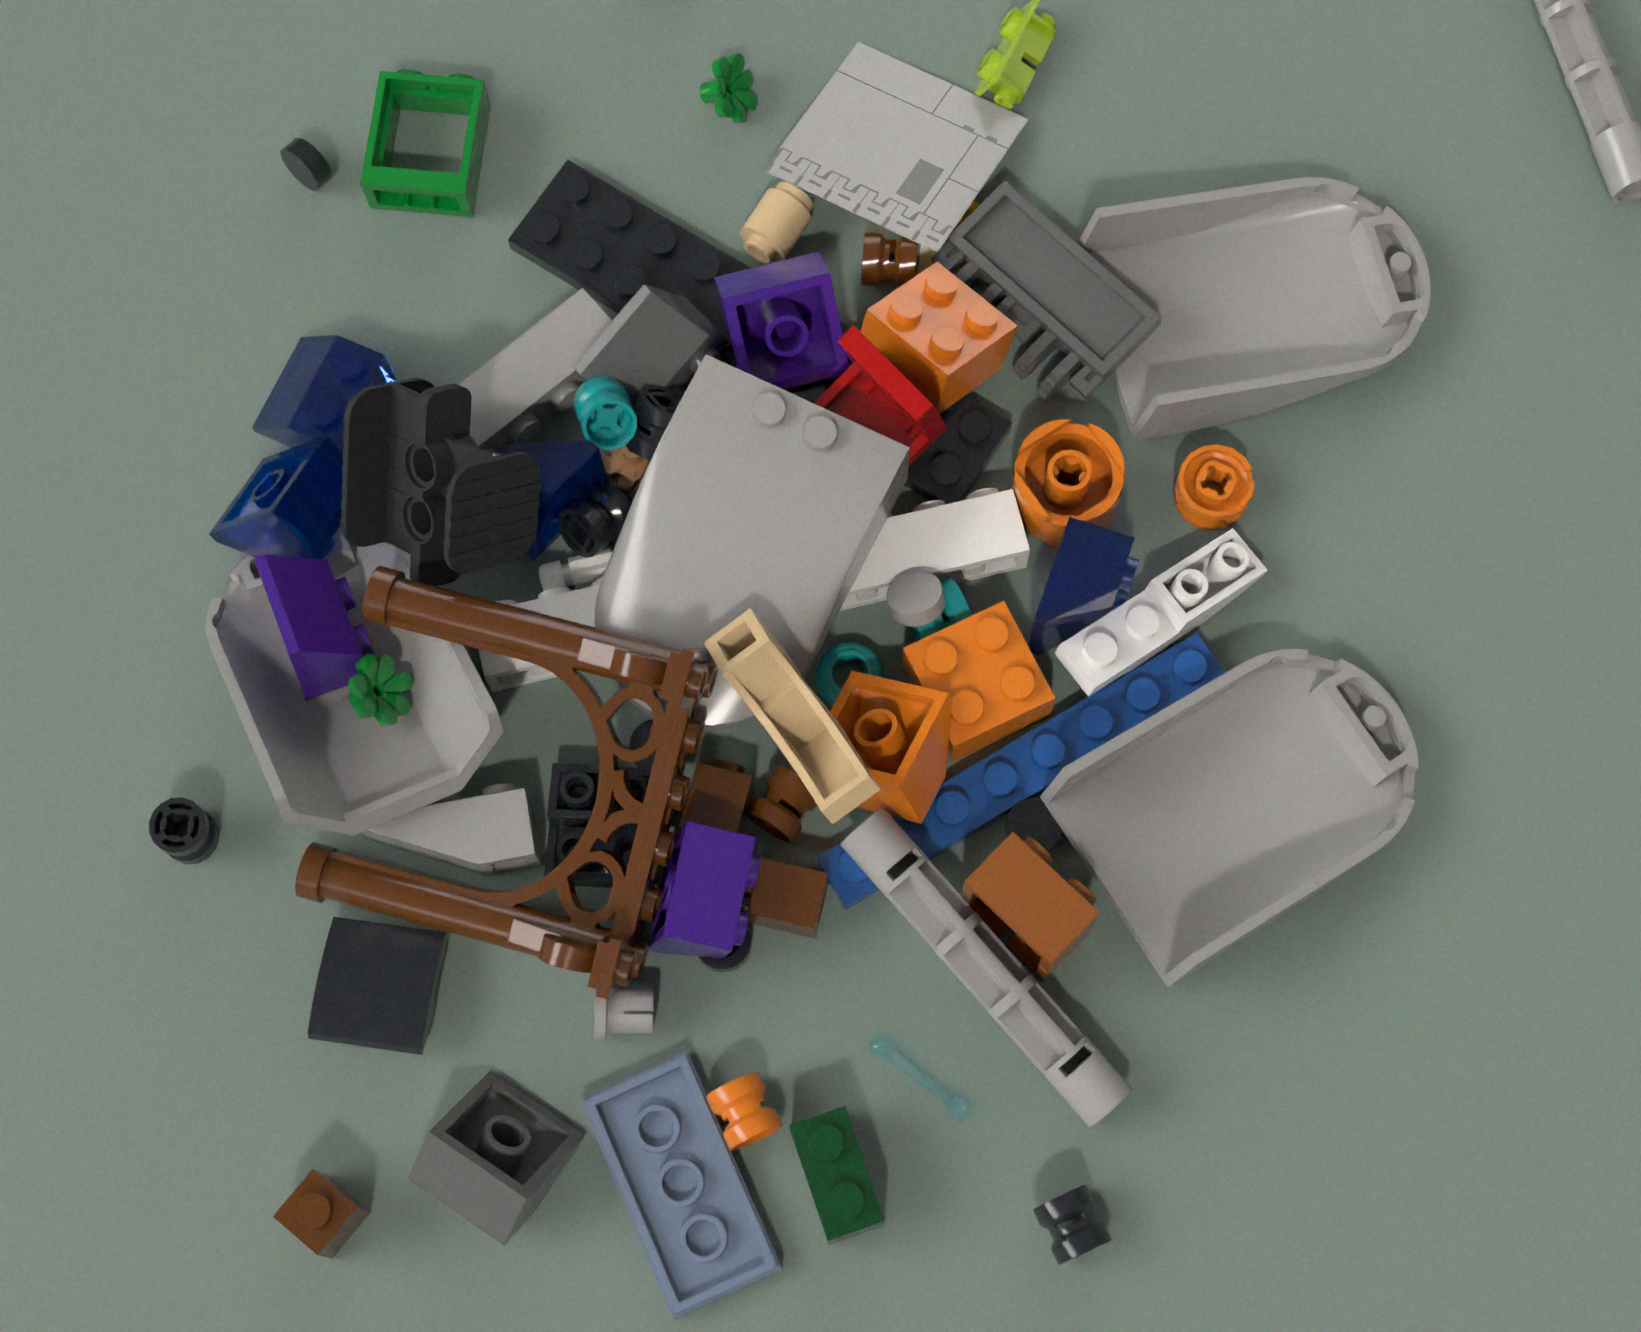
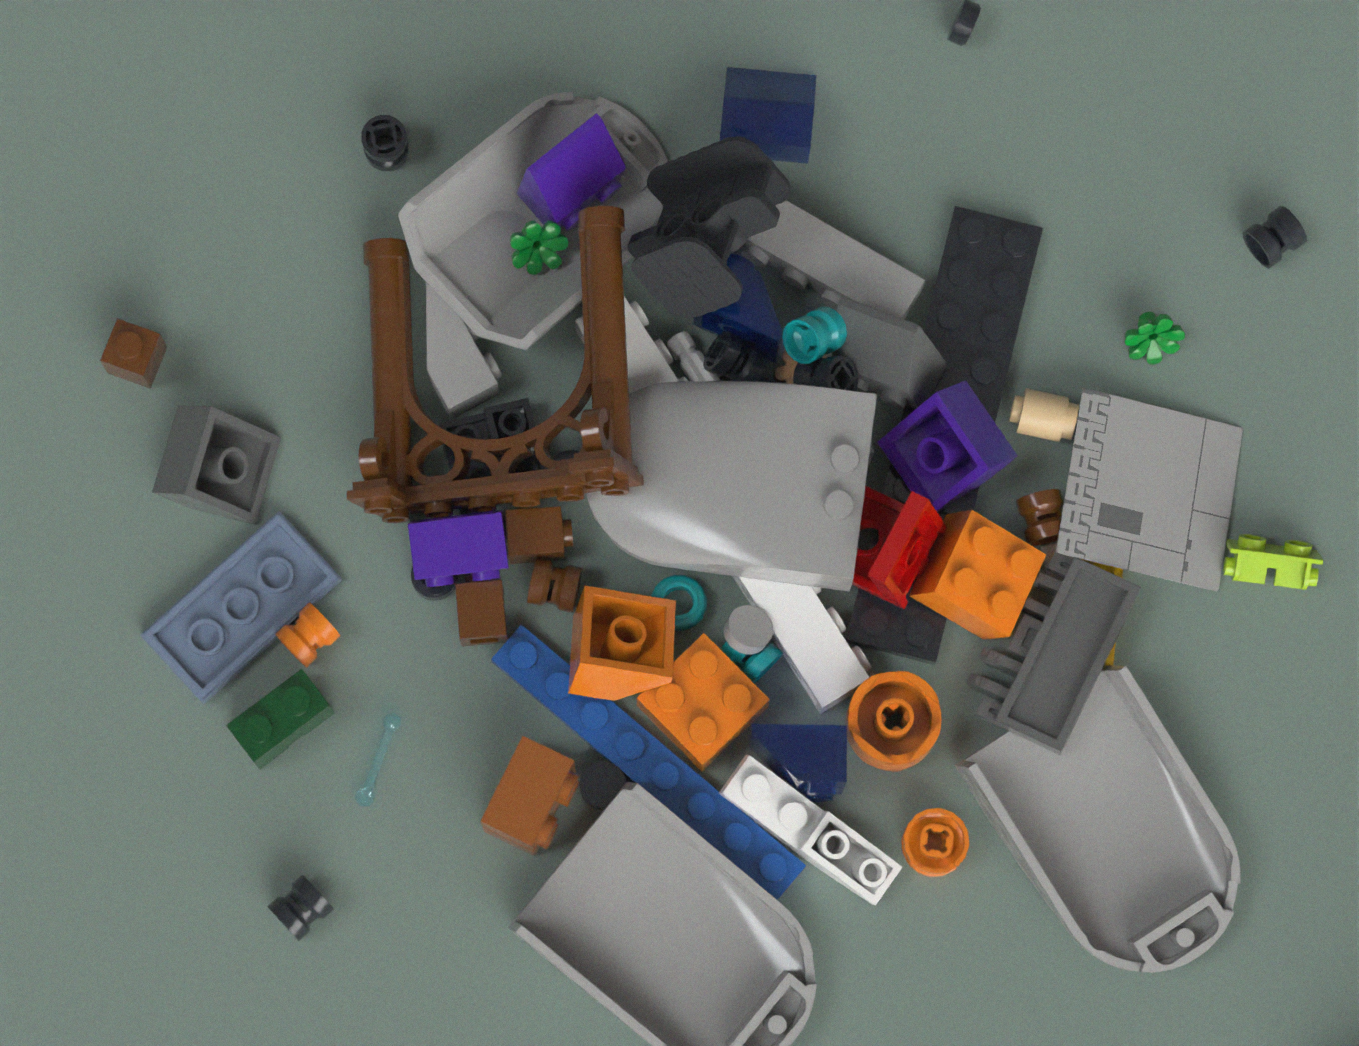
camera: 65 degrees right, 5 degrees up
(288, 504) = (662, 119): clear blue slope -> none
(377, 985) = (315, 330): black slope -> none
(424, 189) = (1060, 81): green window -> none
(623, 1013) = (353, 521): light grey bush -> none
(792, 715) = (601, 575): tan arch -> none
(986, 967) = (473, 779): light grey piece -> none

